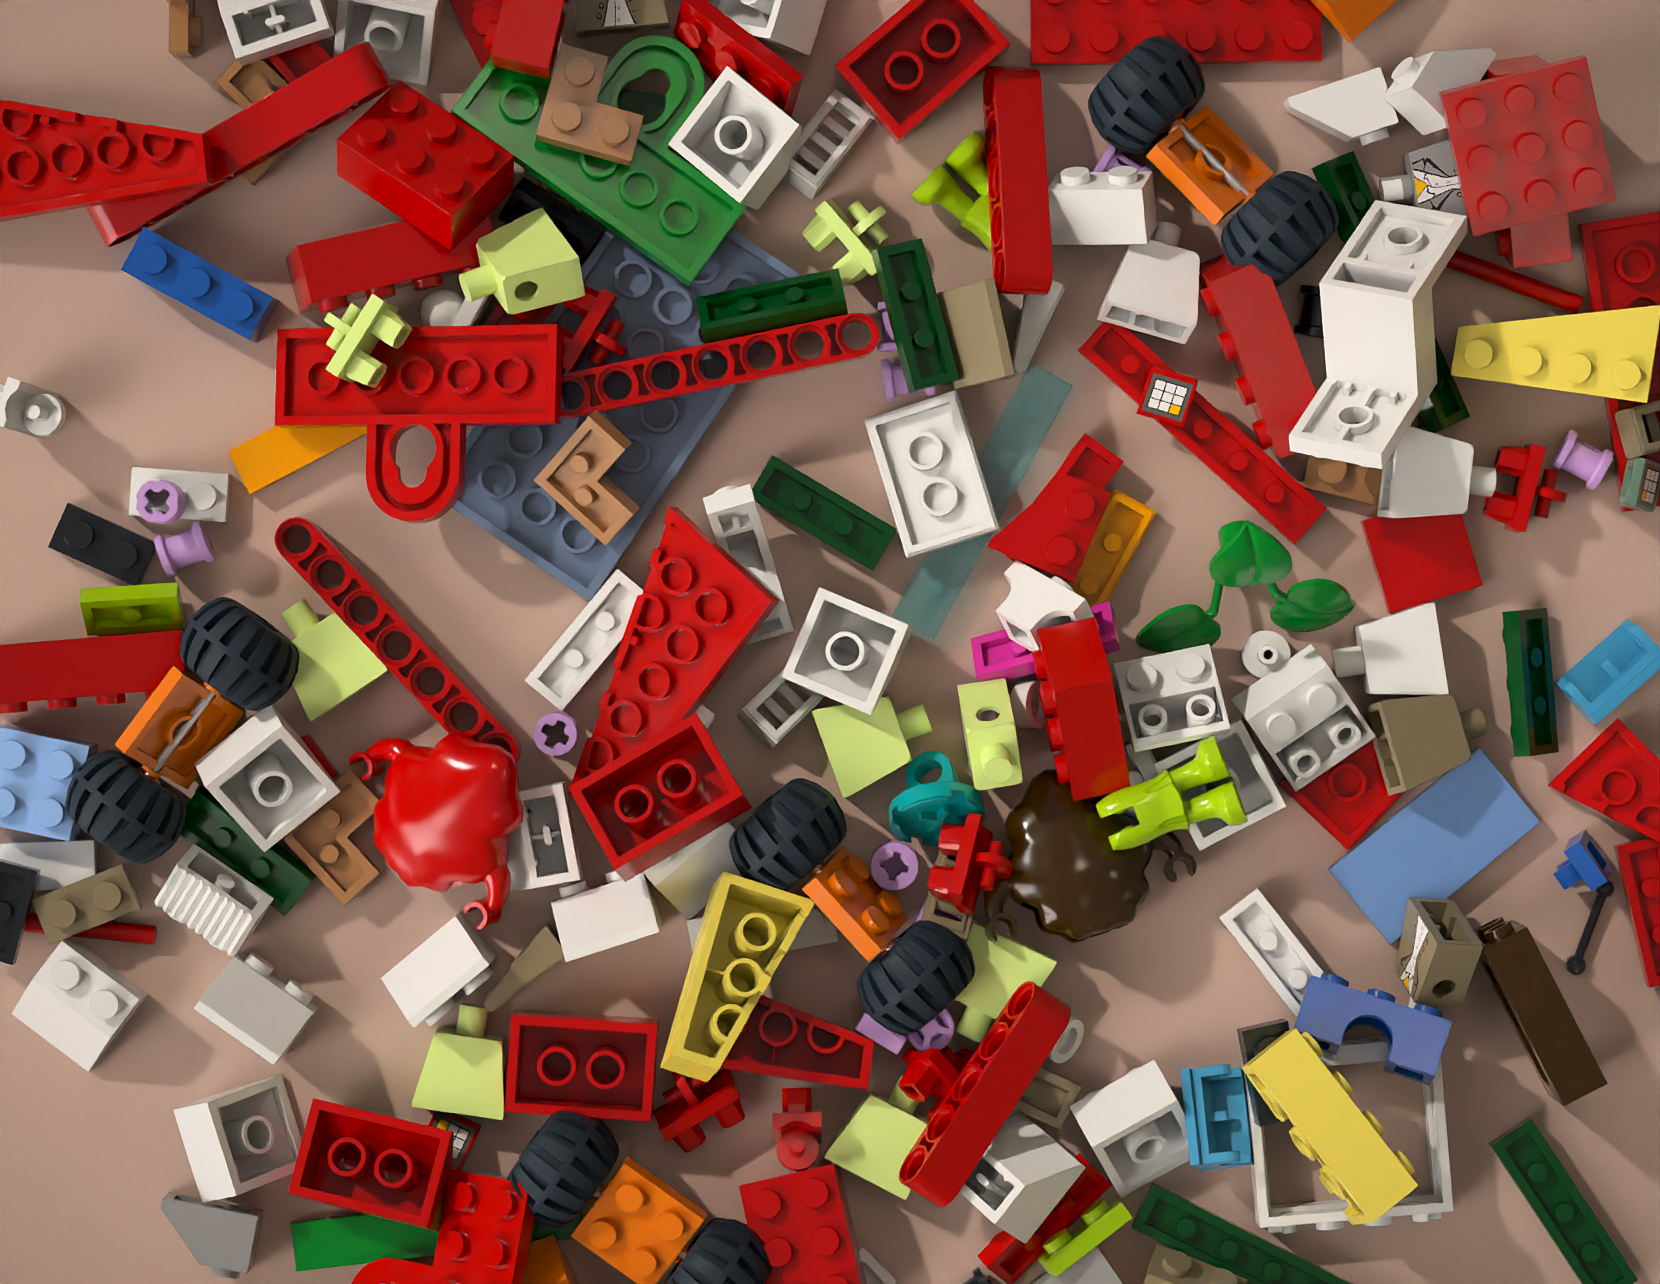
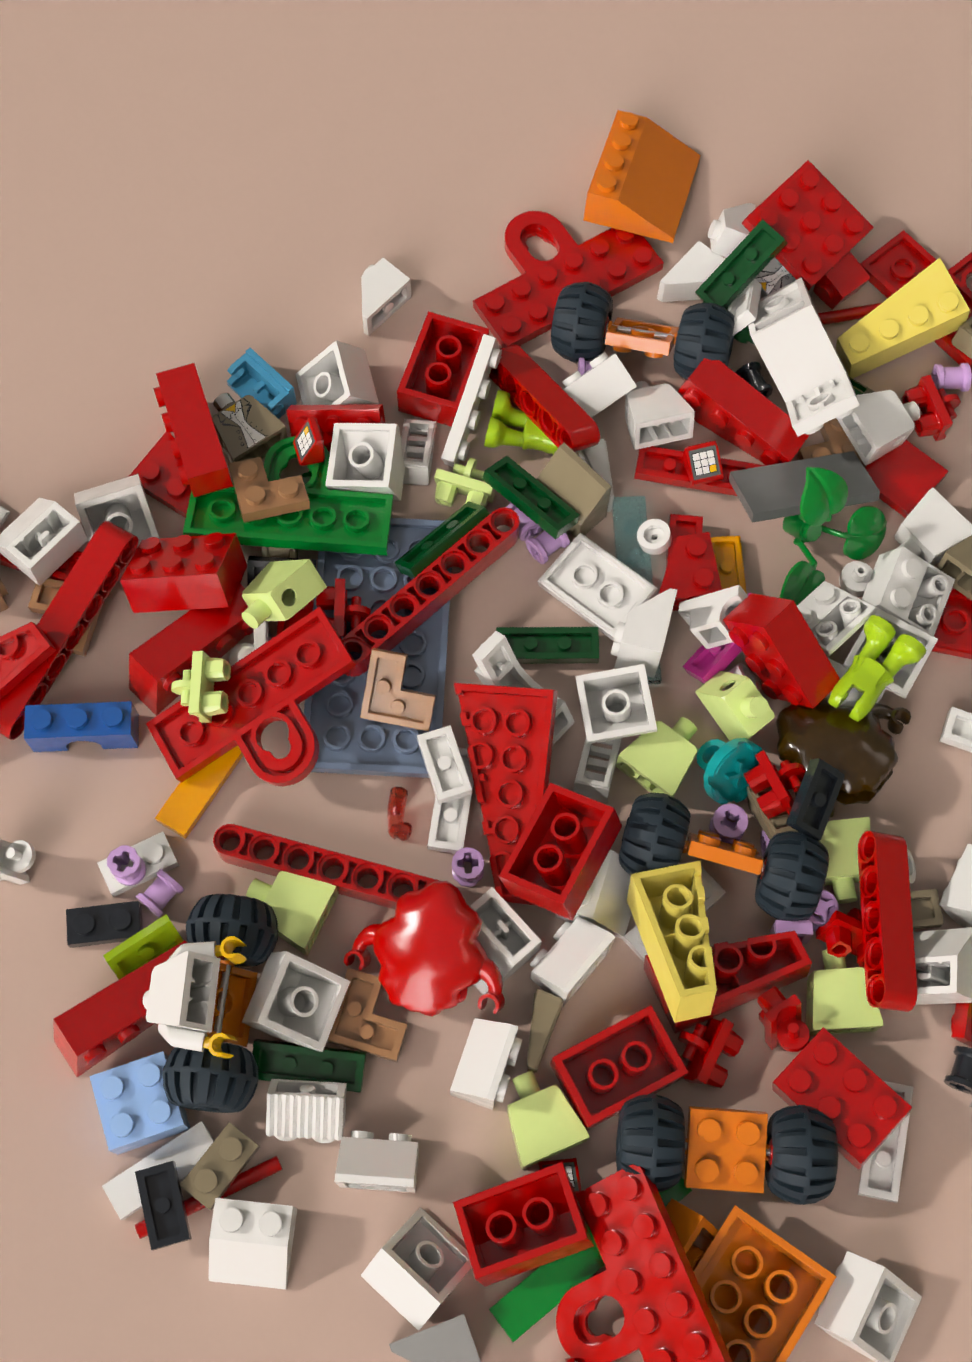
camera: 35 degrees left, 20 degrees down
(138, 716) = (185, 995): none -> white torso
(511, 617) = (395, 814): none -> clear red arm
(599, 598) = (444, 764): none -> white plate
(681, 70) = (309, 443): none -> red slope
(935, 587) = (644, 633): none -> white slope
(941, 121) = (475, 390): none -> white plate
(993, 914) = (815, 799): none -> black plate
(1035, 446) = (654, 536): none -> white tile
(1305, 510) = (778, 488): none -> dark grey tile
(1365, 210) = (746, 306): none -> white tile
(1392, 158) = (742, 266): none -> dark green plate

